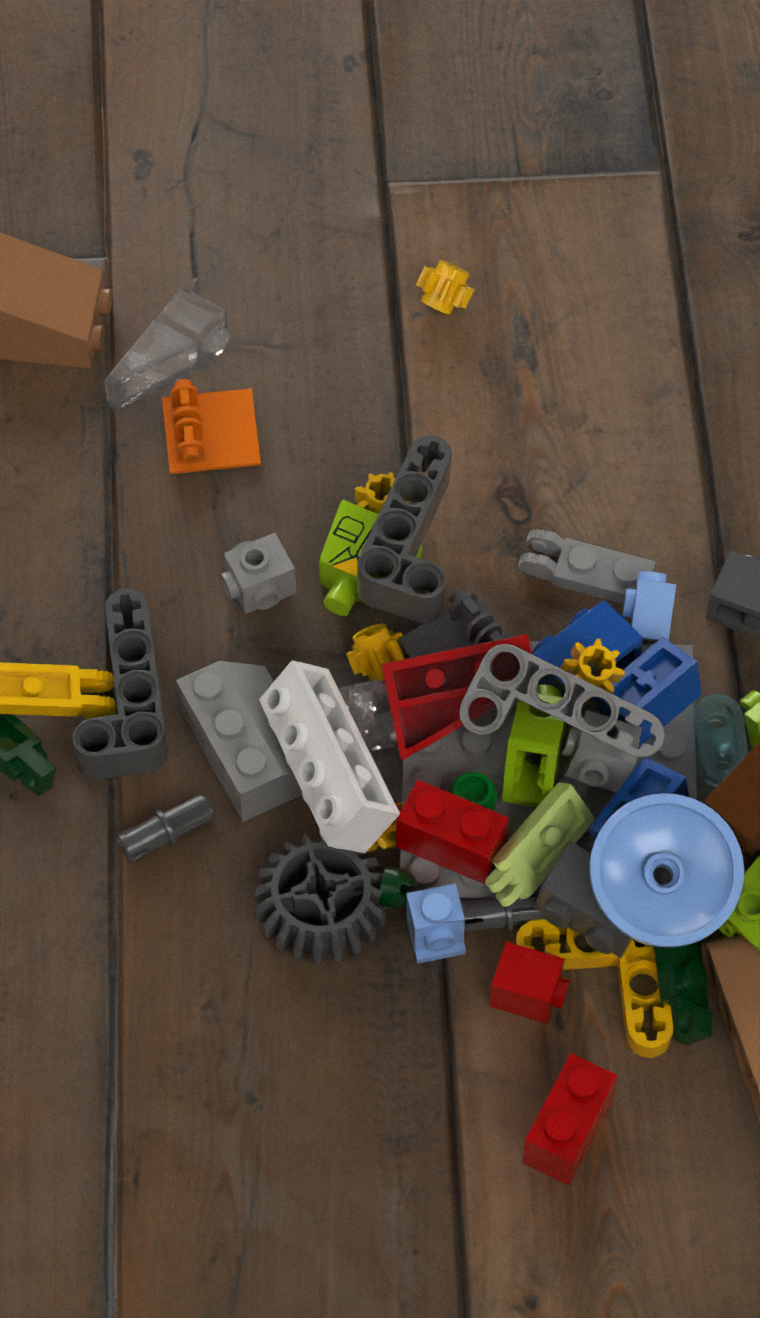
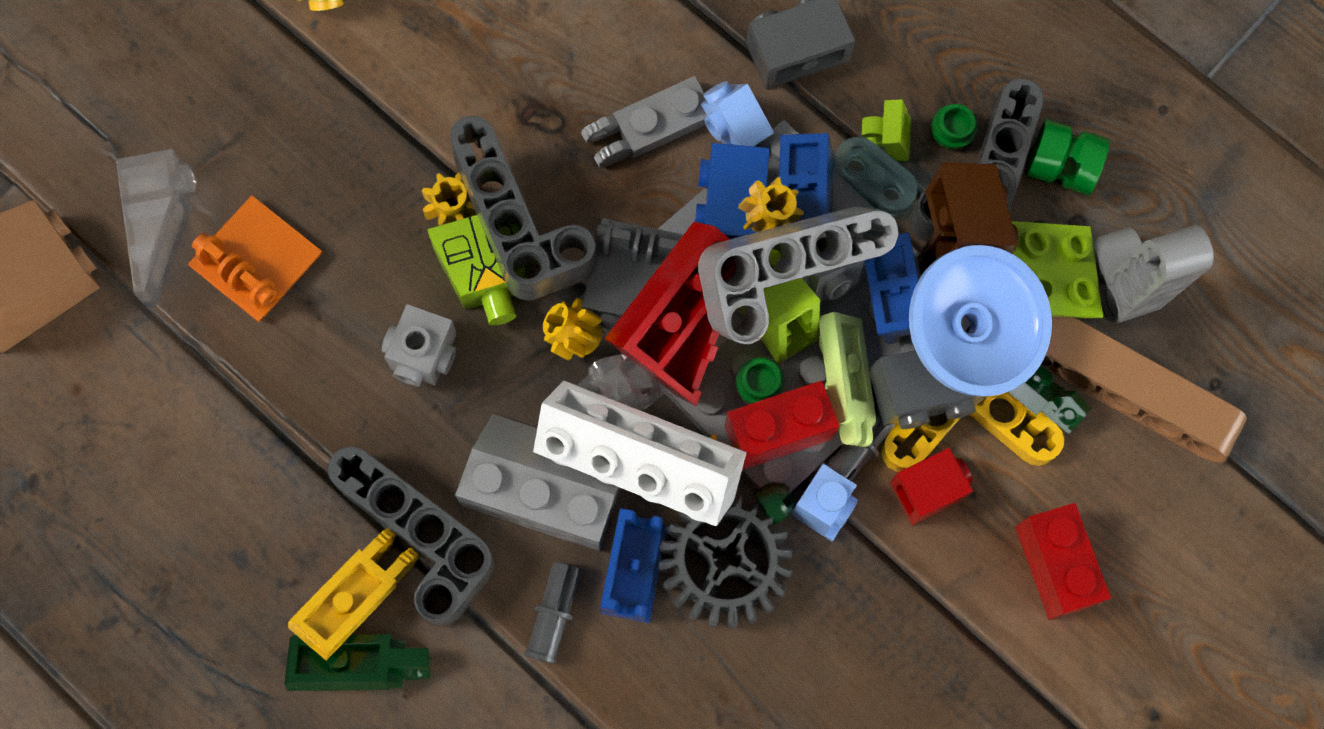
camera: 50 degrees left, 15 degrees up
(244, 842) = (633, 567): none -> blue hinge

